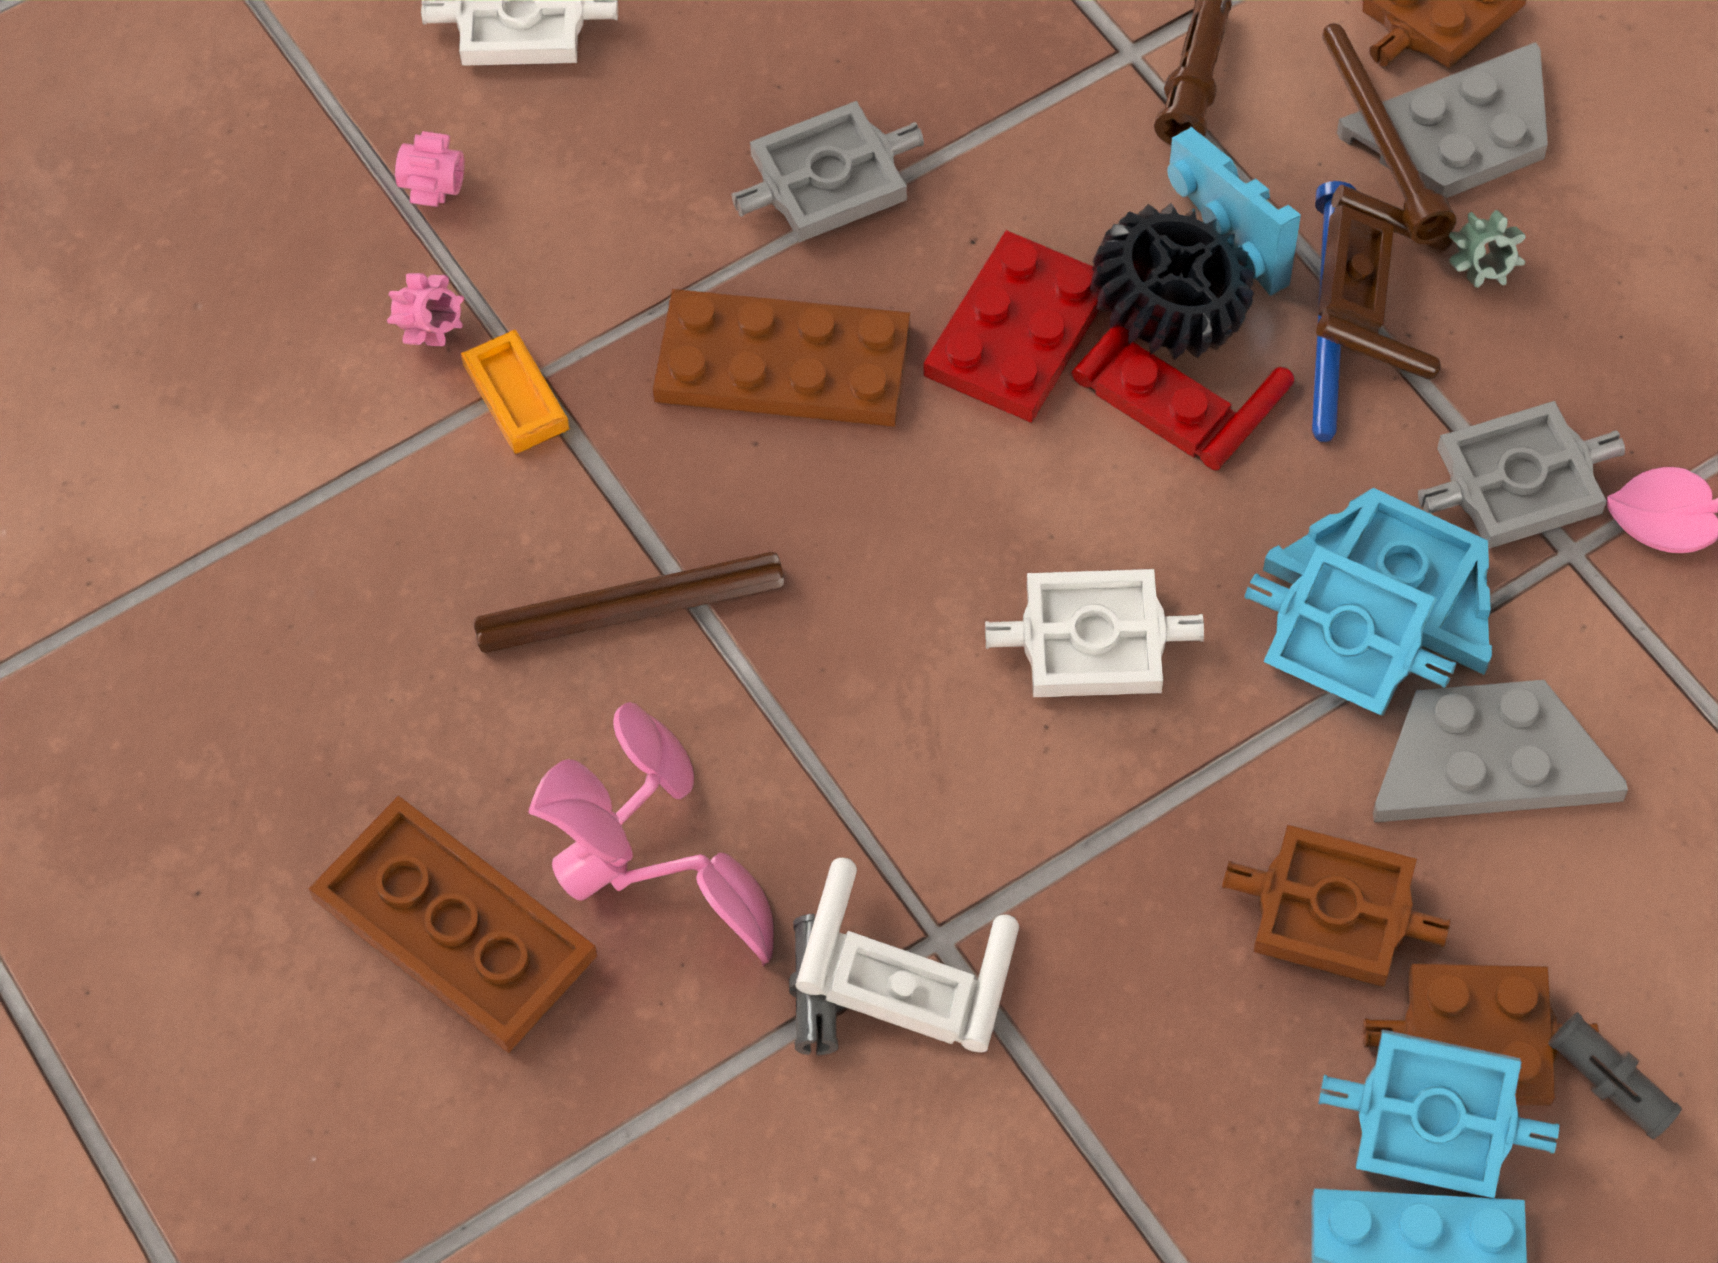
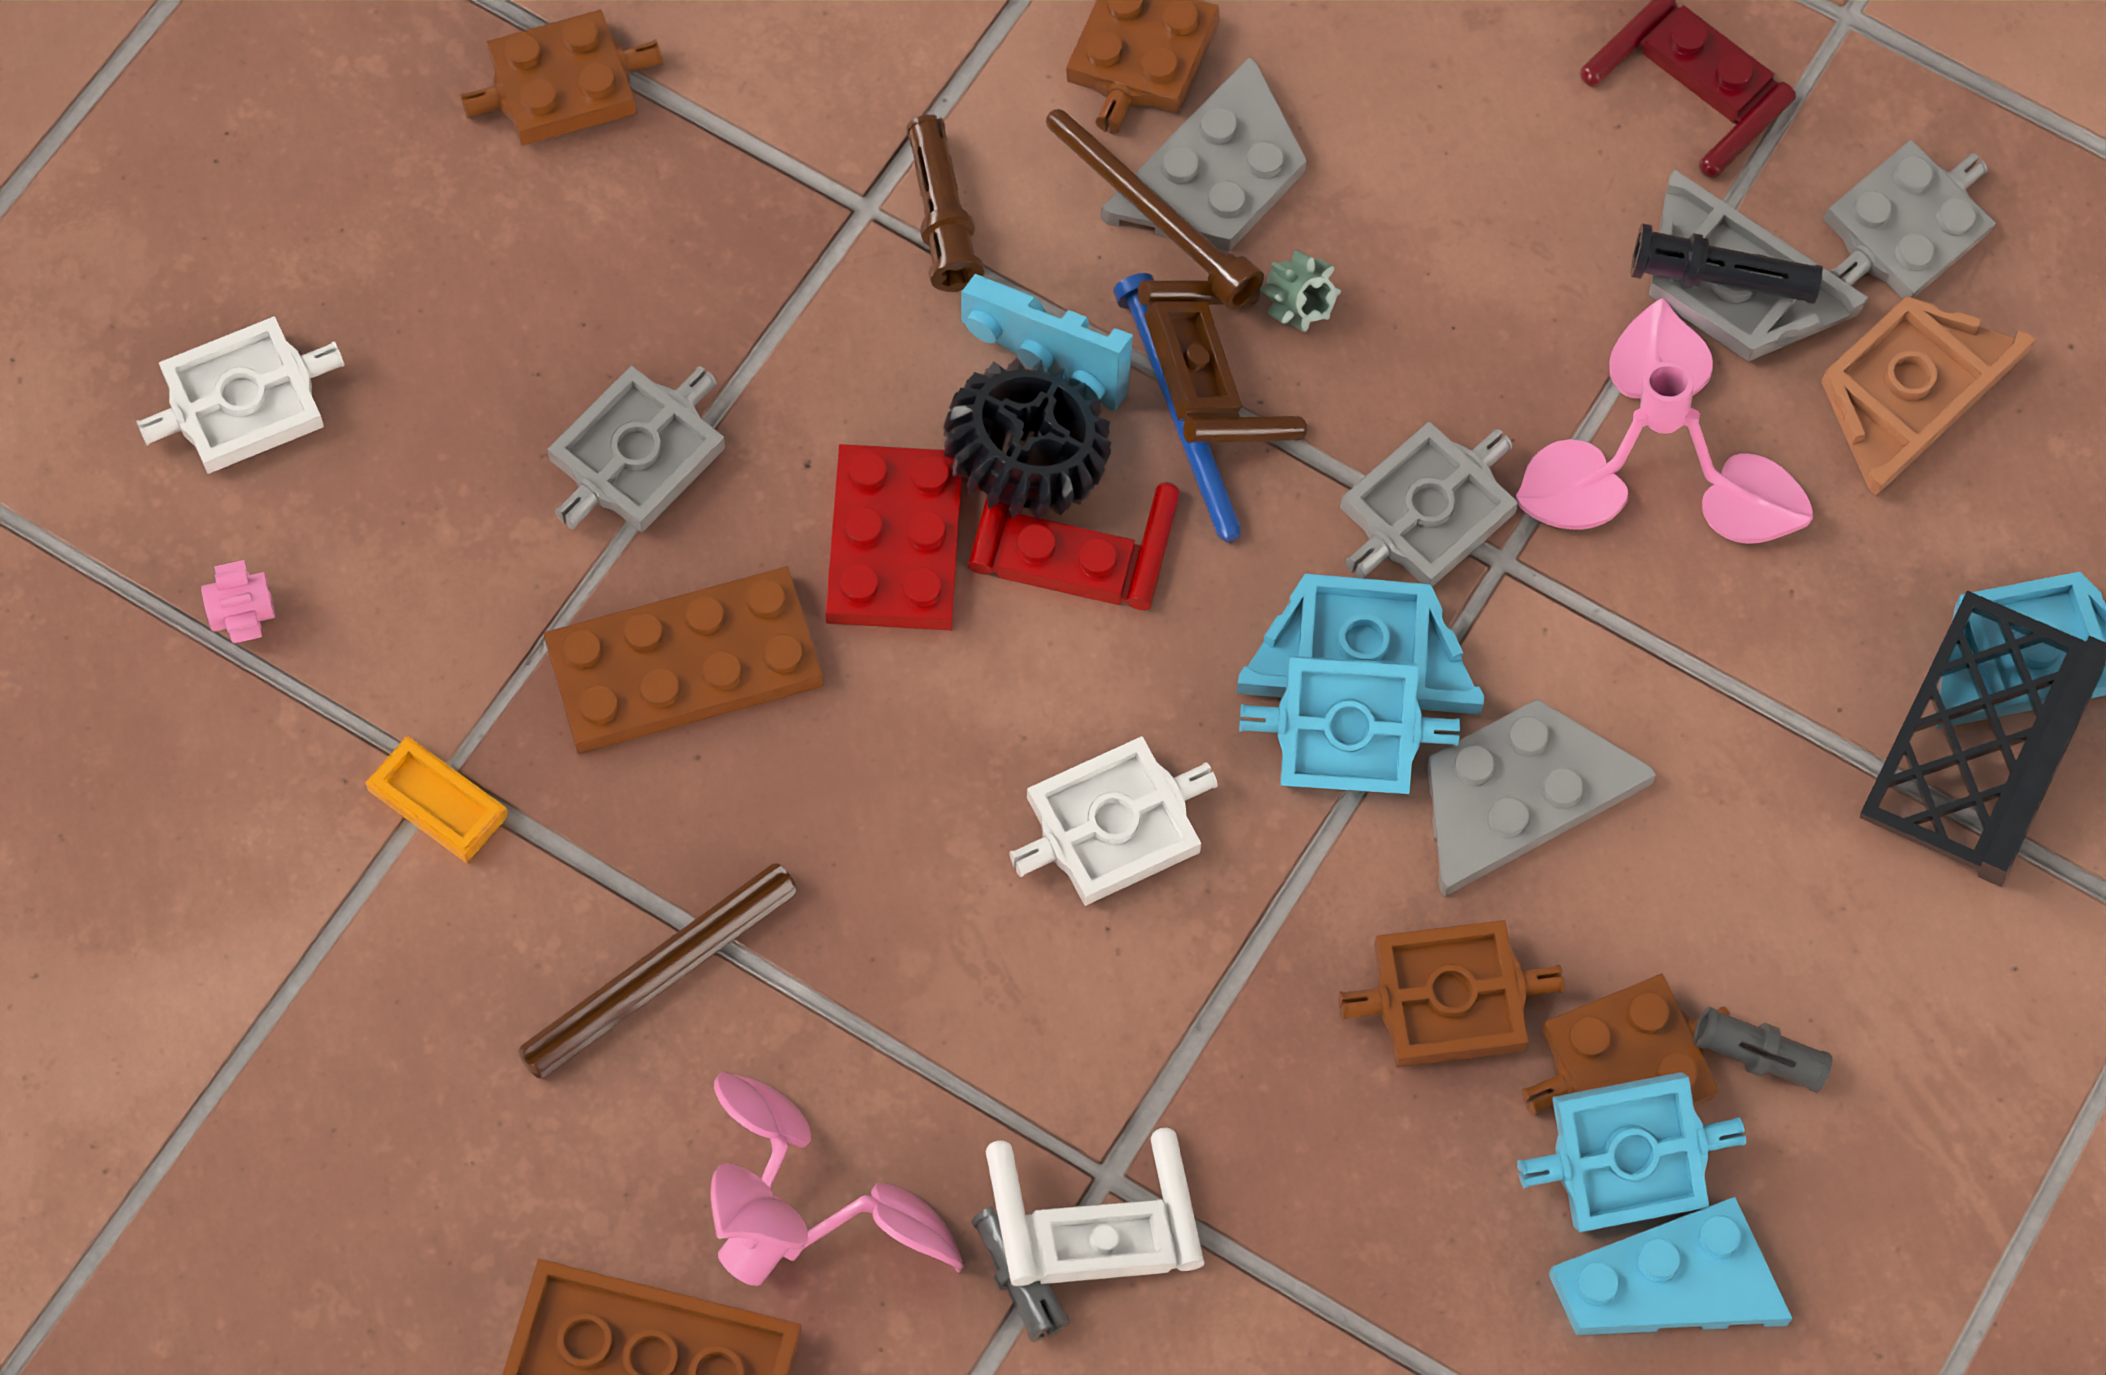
camera: 30 degrees left, 5 degrees up
(425, 309) = (310, 752): bright pink gear -> none

